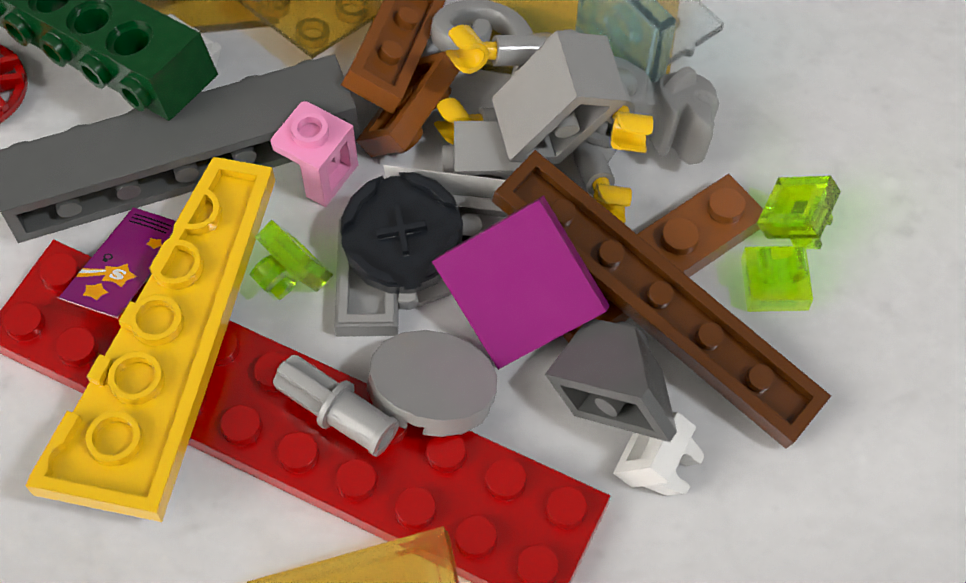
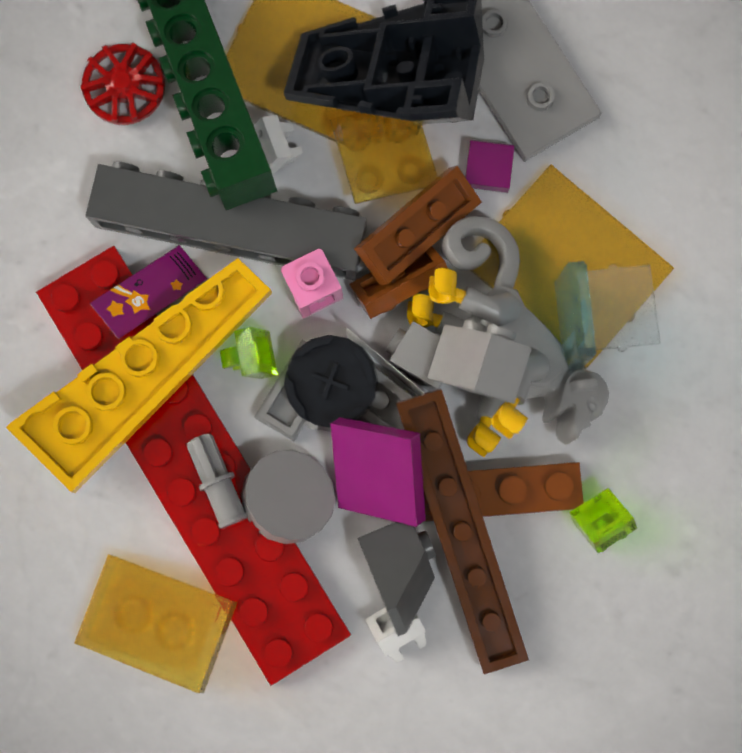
camera: 35 degrees right, 20 degrees up
(776, 278) = (559, 554): clear neon green tile -> none

